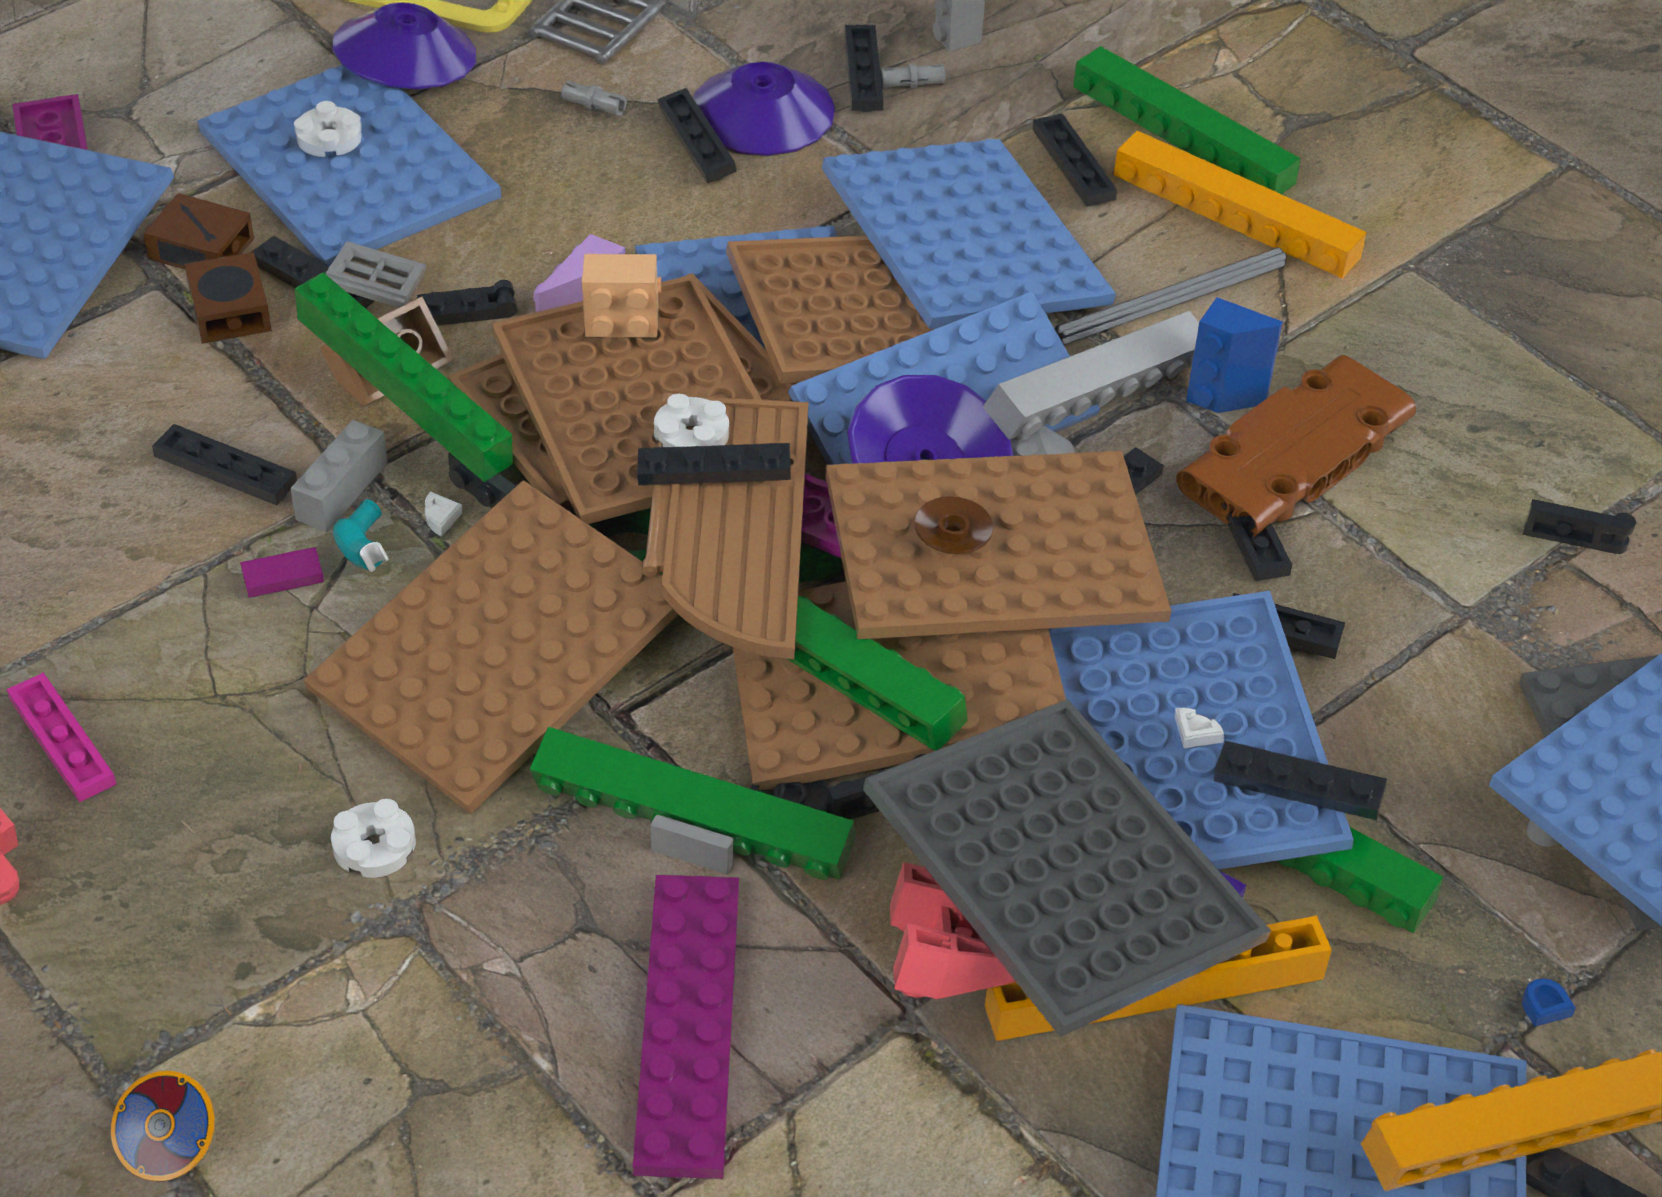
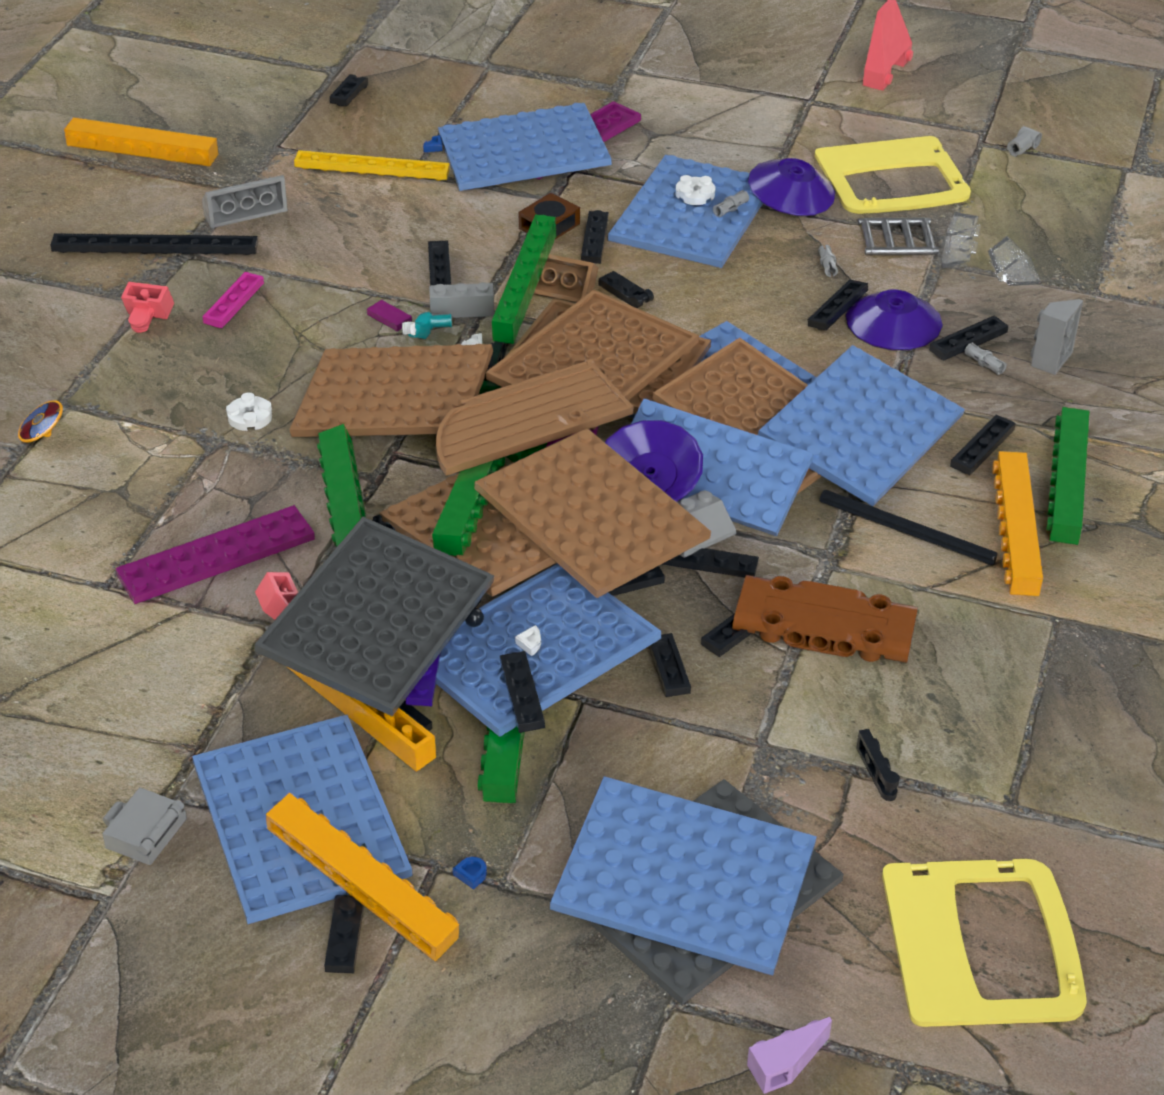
camera: 60 degrees right, 5 degrees down
(197, 231) = (583, 189): reddish brown brick -> none
(380, 260) = (625, 247): light grey piece -> none
(397, 114) = (731, 203): none -> light grey pin
(565, 283) = (687, 313): lavender slope -> none
(620, 295) = (637, 310): light nougat brick -> none
(682, 411) = (579, 371): white plate -> none
(691, 844) = (321, 507): light grey tile -> none
(714, 464) = (548, 390): black plate -> none
(953, 525) = (569, 479): reddish brown dish -> none
(1093, 376) = (782, 509): light grey brick -> none
(1233, 358) = (847, 550): blue slope -> none

